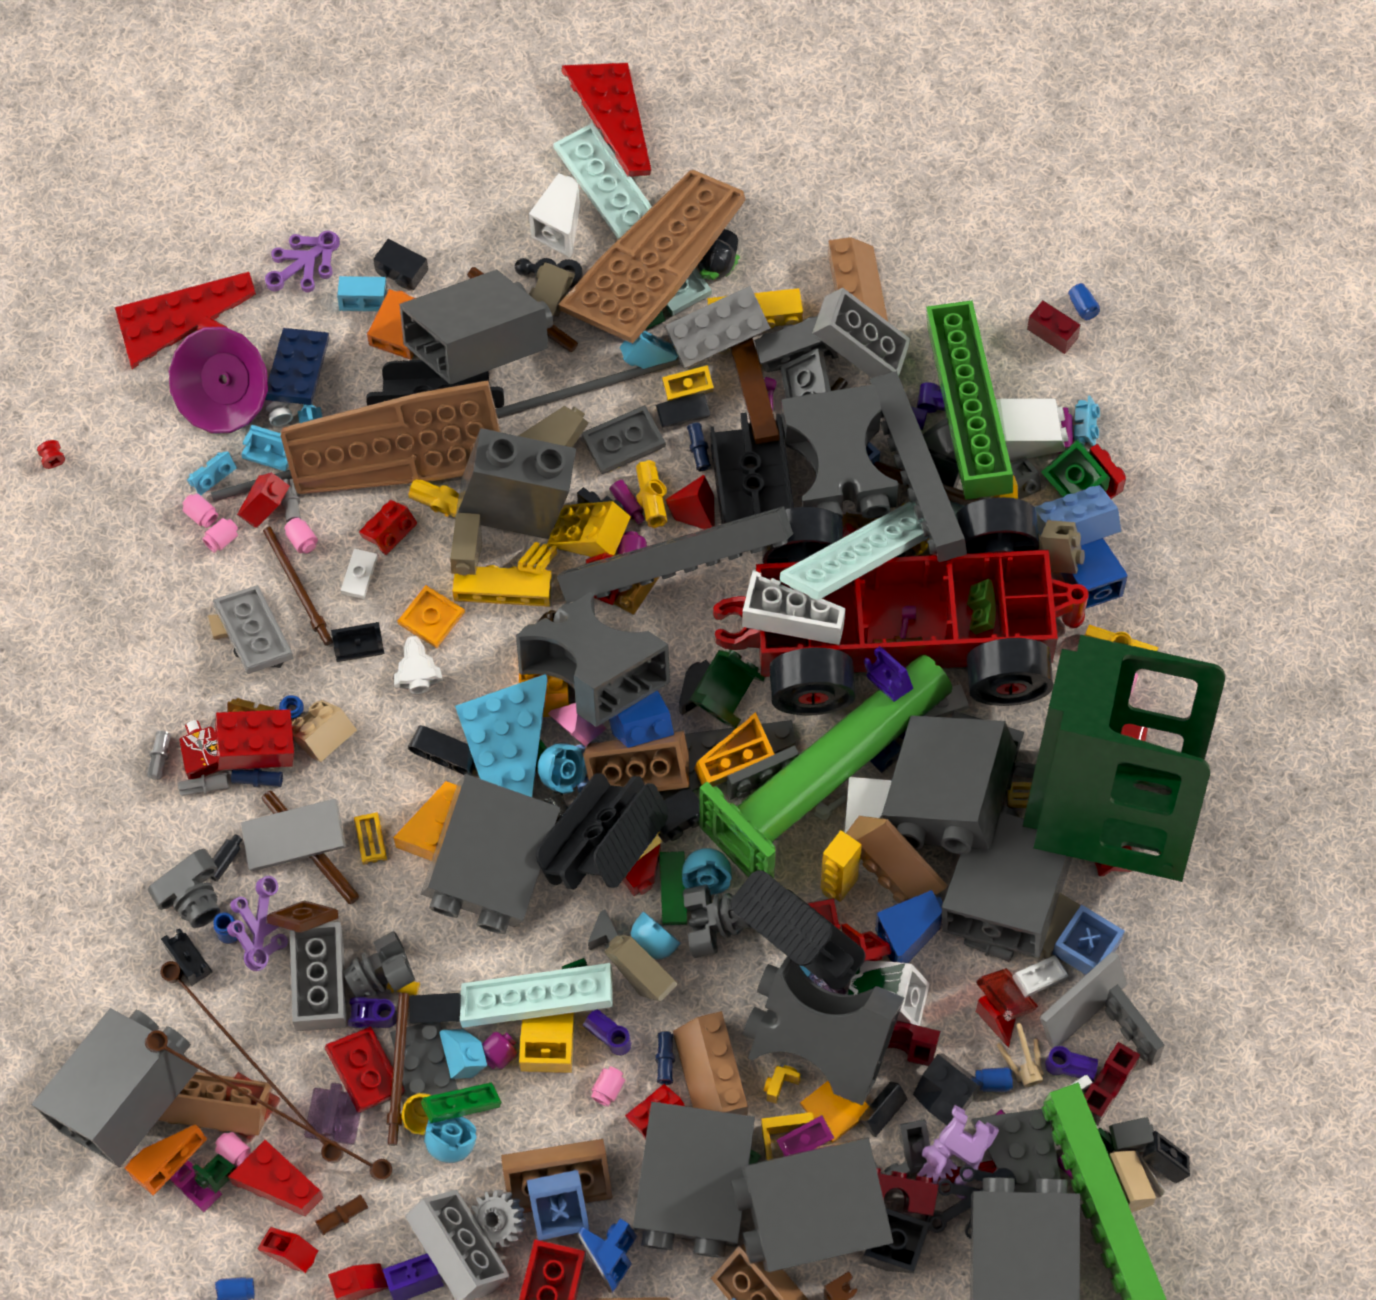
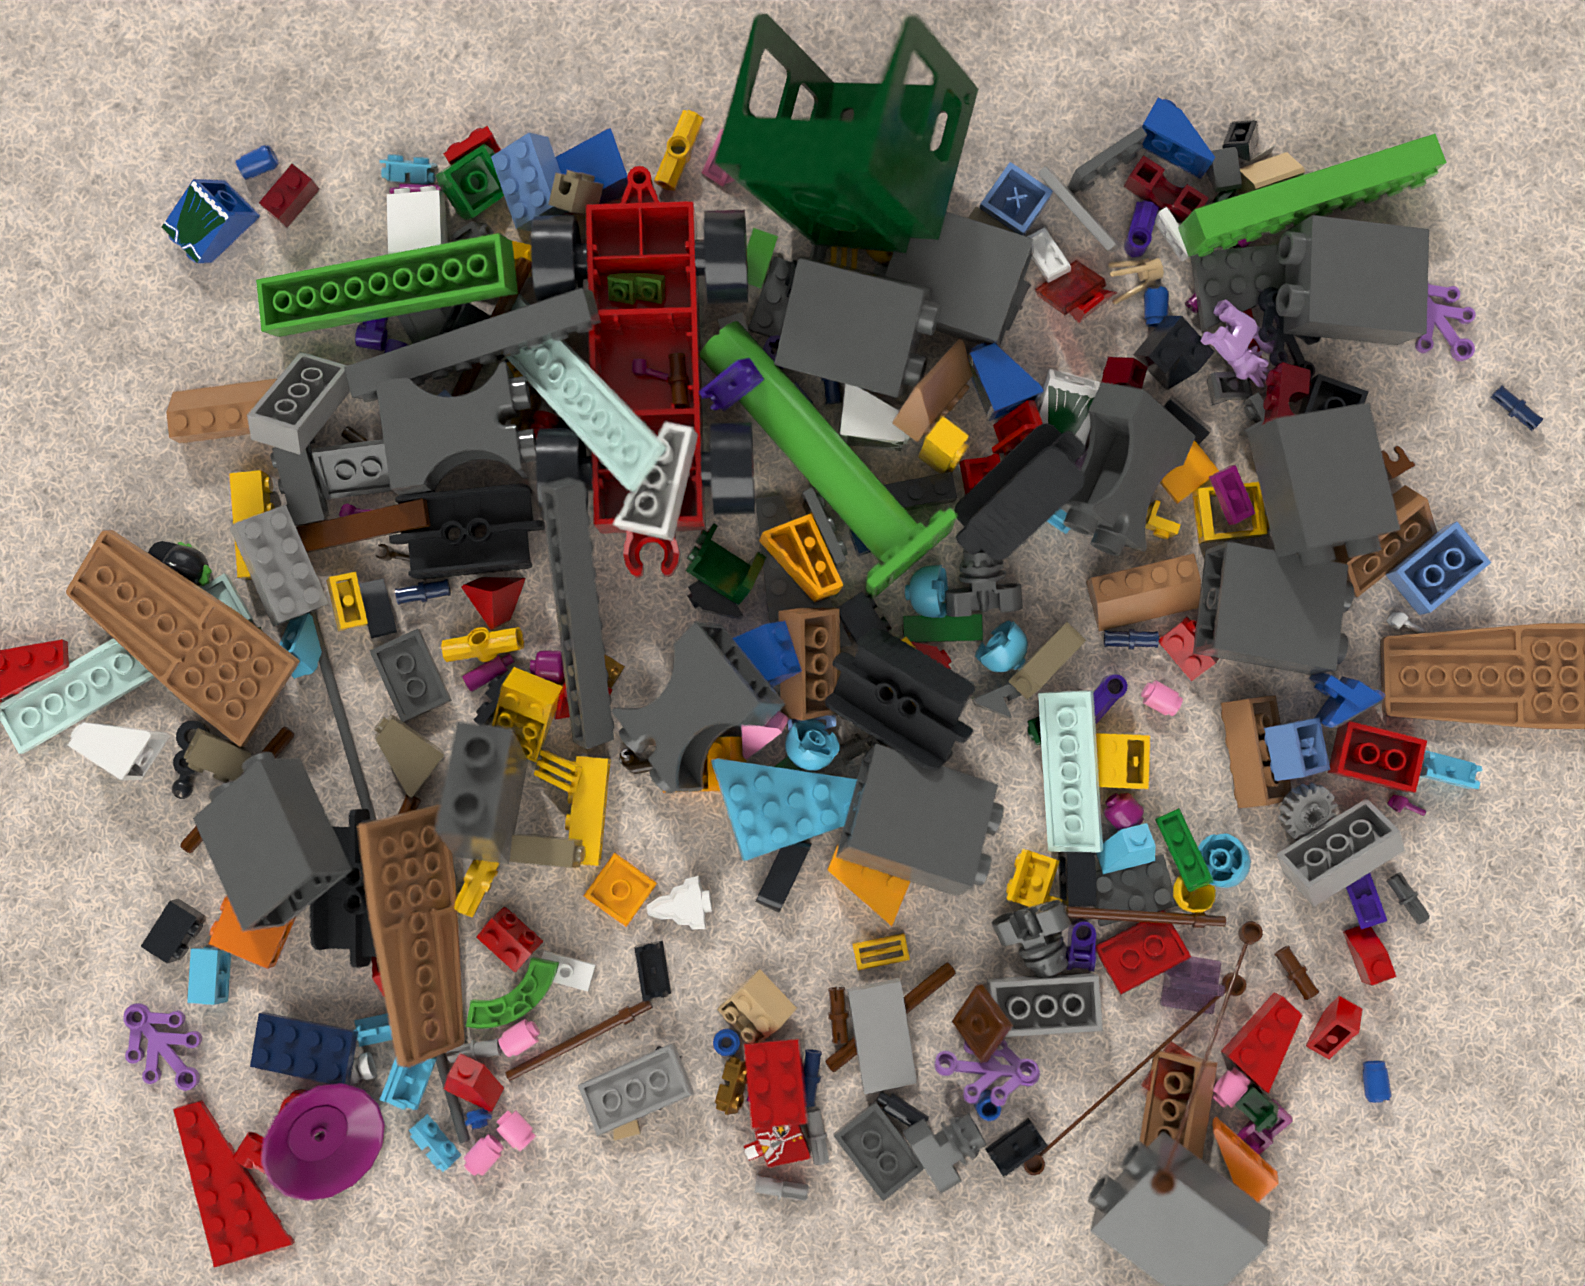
camera: 90 degrees left, 20 degrees up
(187, 832) = (879, 1151): none -> dark grey plate
(231, 505) = (478, 1118): none -> blue plate
(311, 798) = (838, 1015): none -> reddish brown pin
(332, 534) = (516, 1003): none -> bright green tile
(436, 966) = (1032, 878): none -> yellow bracket
(733, 420) = (391, 554): none -> dark brown hand
(801, 860) = (924, 491): none -> black brick
(1023, 716) = (759, 255): none -> bright green slope
(1028, 265) = (208, 219): none -> blue slope
(1169, 1079) = (1175, 139): none -> blue slope

